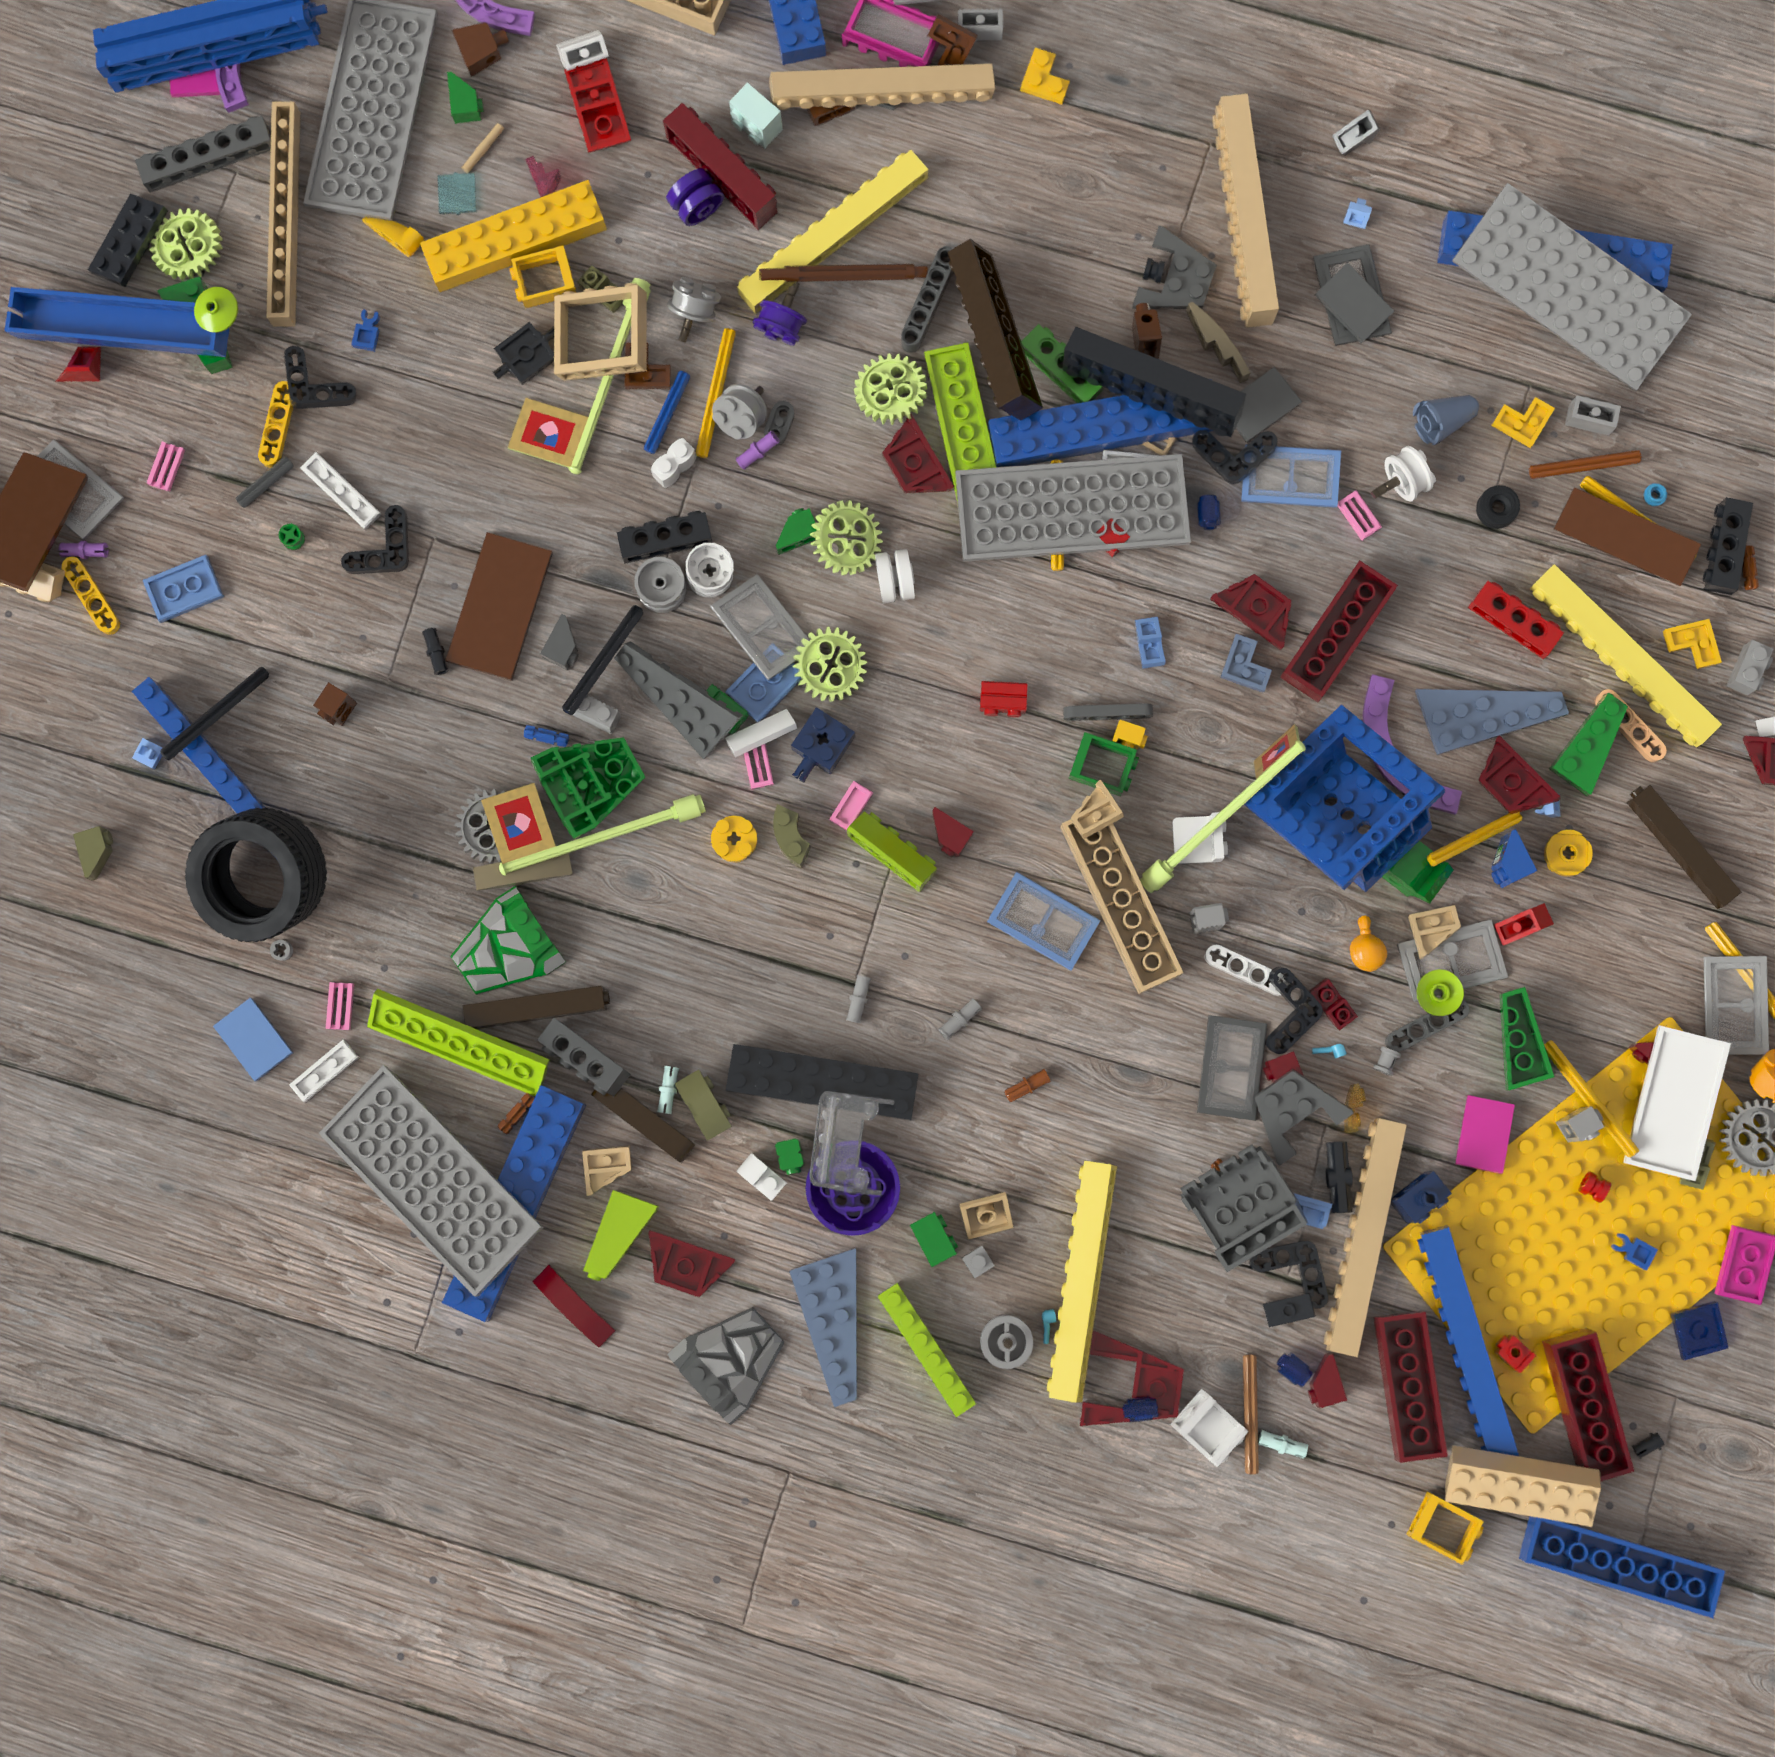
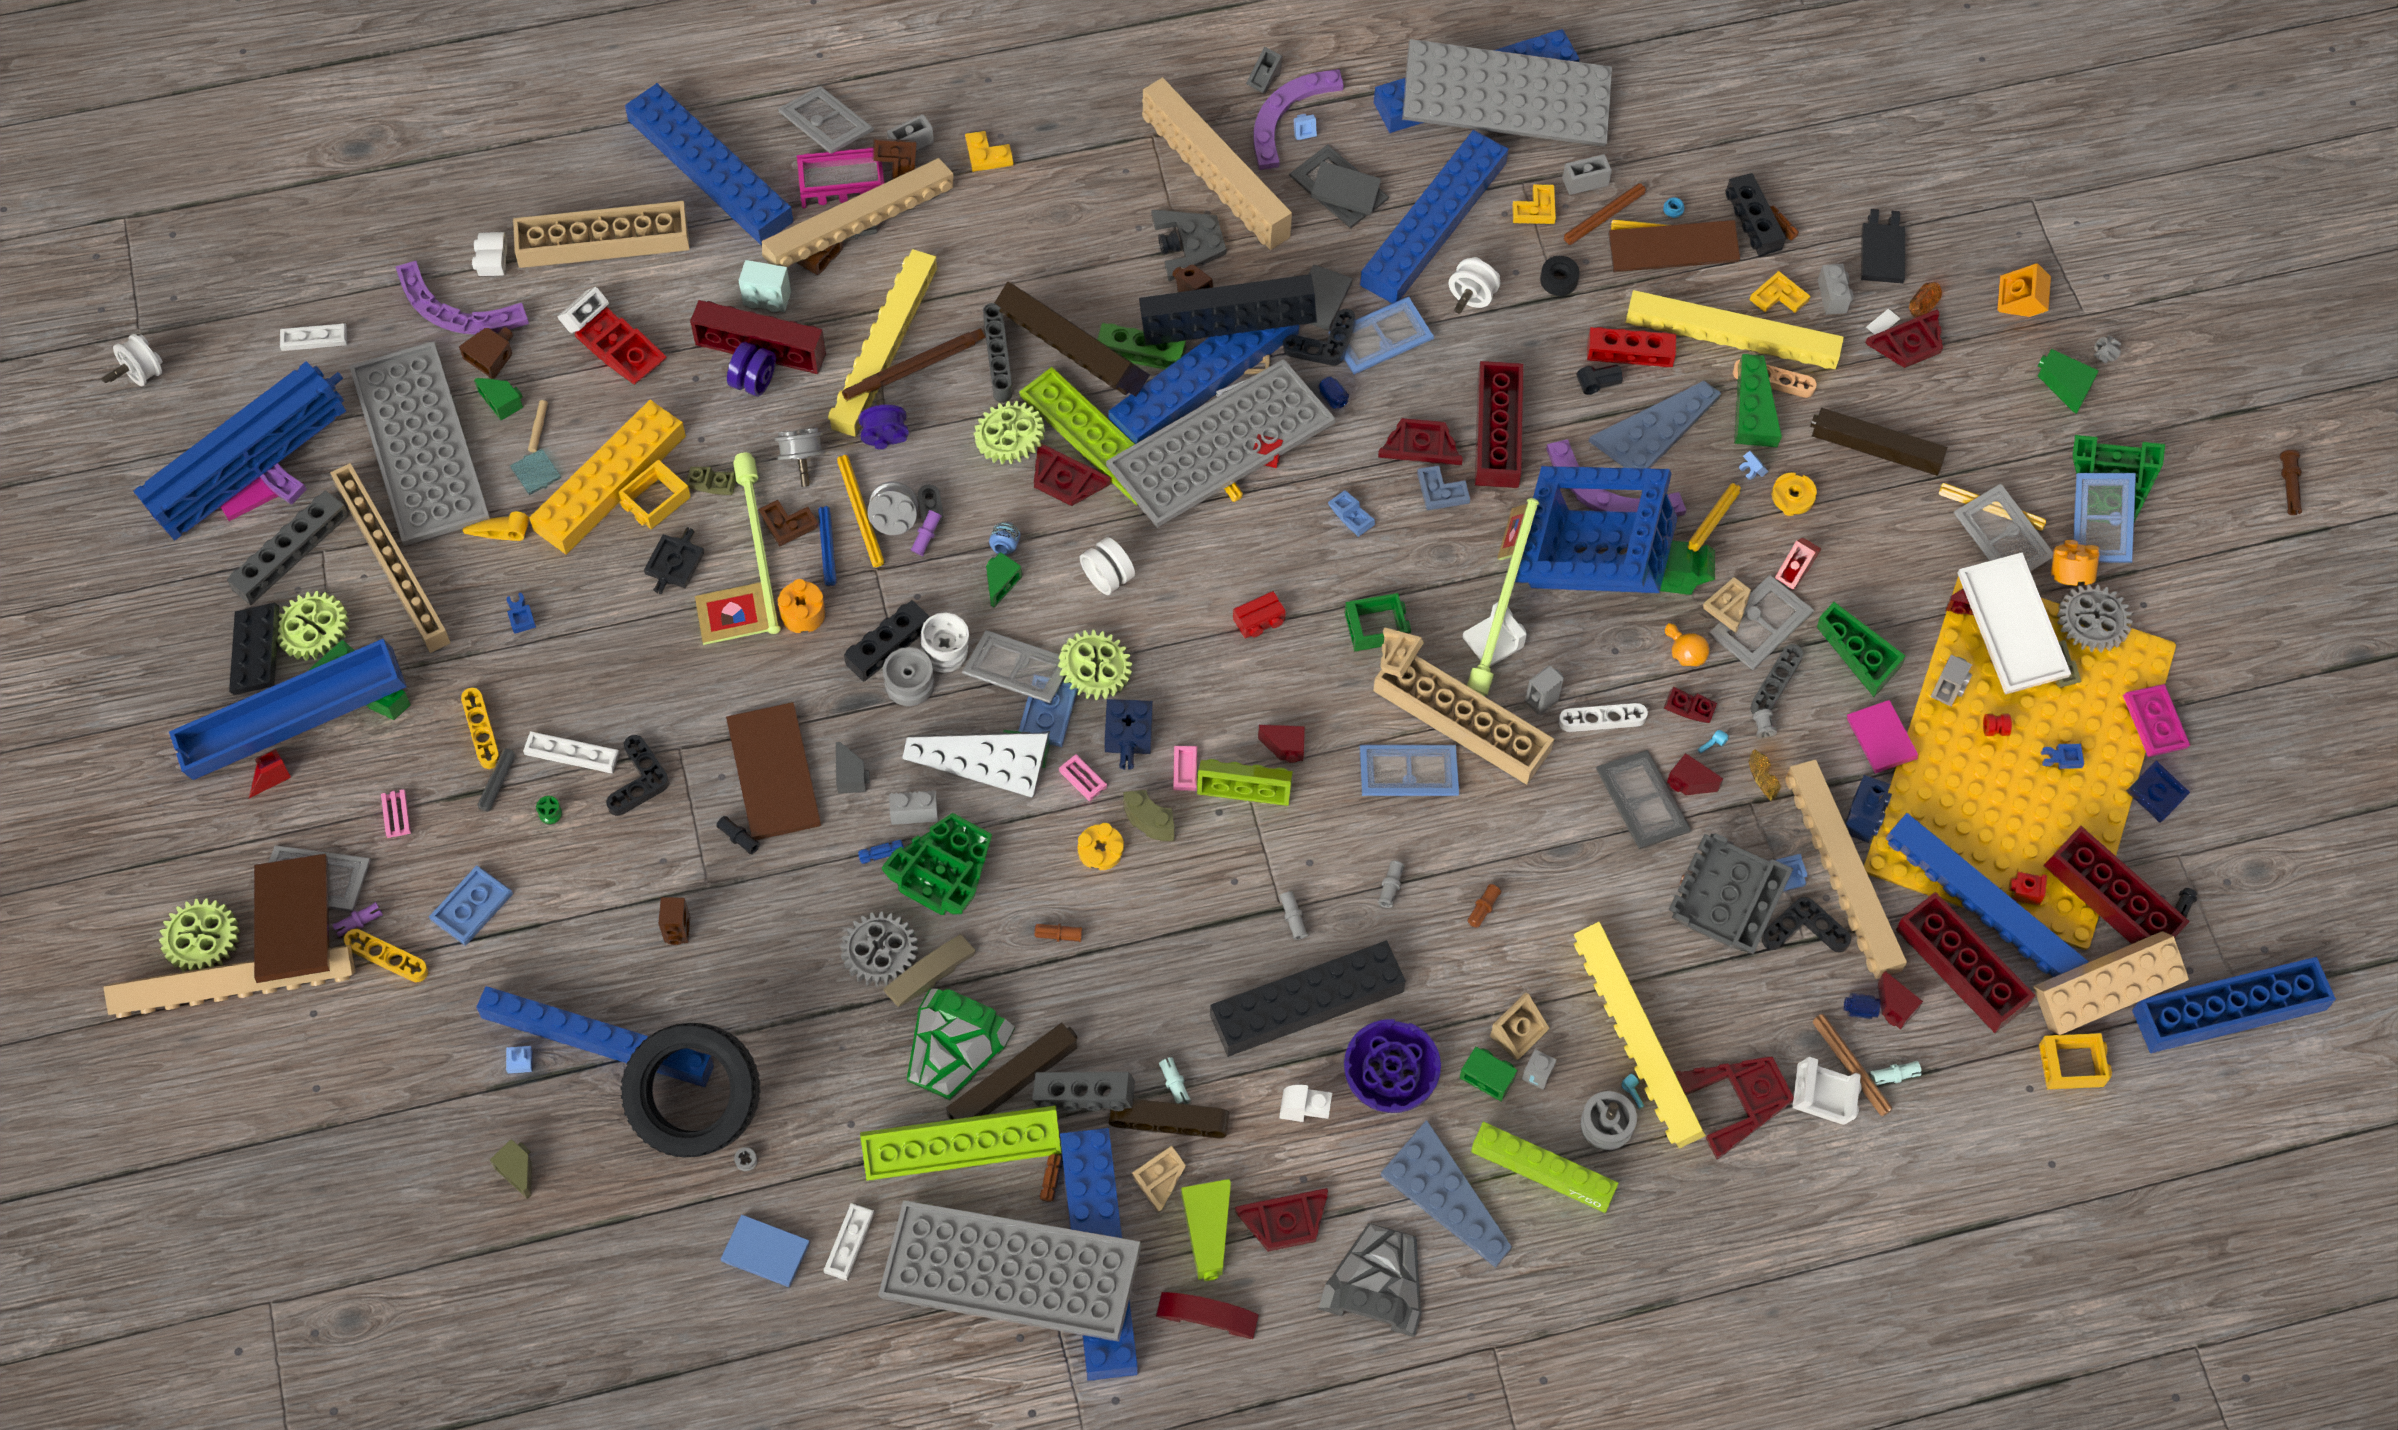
camera: 35 degrees left, 20 degrees down
(214, 713) = (566, 984): black axle -> none
(223, 314) = (388, 650): lime dish -> none
(310, 391) = (524, 674): black beam -> none
(330, 1008) = (821, 1160): bright pink tile -> none
(525, 836) = (917, 937): flag -> none
(545, 182) = (605, 424): clear pink slope -> none
(602, 451) = (801, 606): none -> light orange brick
(602, 660) = (895, 760): black axle -> none
(635, 363) = (750, 534): tan window -> none
(651, 898) = (1058, 932): none -> dark orange axle
(677, 460) = (859, 579): white brick -> none
(703, 1104) = (1215, 1073): olive brick -> none
(761, 733) = (1070, 748): white tile -> none
(790, 1156) = (1320, 1069): green brick -> none
(824, 493) = (1004, 538): none -> medium blue head
(839, 1141) = (1353, 1024): clear windscreen -> none
(846, 516) = (1046, 559): yellowish green gear -> none
(1108, 712) = (1353, 581): dark grey beam -> none
(1130, 735) = (1383, 586): yellow brick -> none
(1140, 1409) = (1759, 1107): clear blue brick -> none
(1213, 336) = (1249, 265): dark tan slope -> none
(1288, 1103) = (1710, 793): dark grey wing -> none
(1289, 1310) = (1824, 961): black plate -> none
(1300, 1013) = (1668, 725): black beam -> none
(1339, 1177) = (1790, 833): black piece -> none
(1349, 174) = (1279, 103): none -> medium lavender plate
(1369, 531) = (1452, 339): bright pink tile -> none
(1419, 378) = (1434, 217): none -> blue brick
(1443, 416) = (1471, 232): sand blue cone -> none
(1451, 991) = (1772, 639): lime dish -> none
(1459, 633) = (1594, 379): none -> black piece
(1511, 860) = (1755, 517): blue slope -> none
(1514, 780) = (1715, 461): dark red wing -> none
(1590, 1098) = (1941, 659): yellow axle -> none

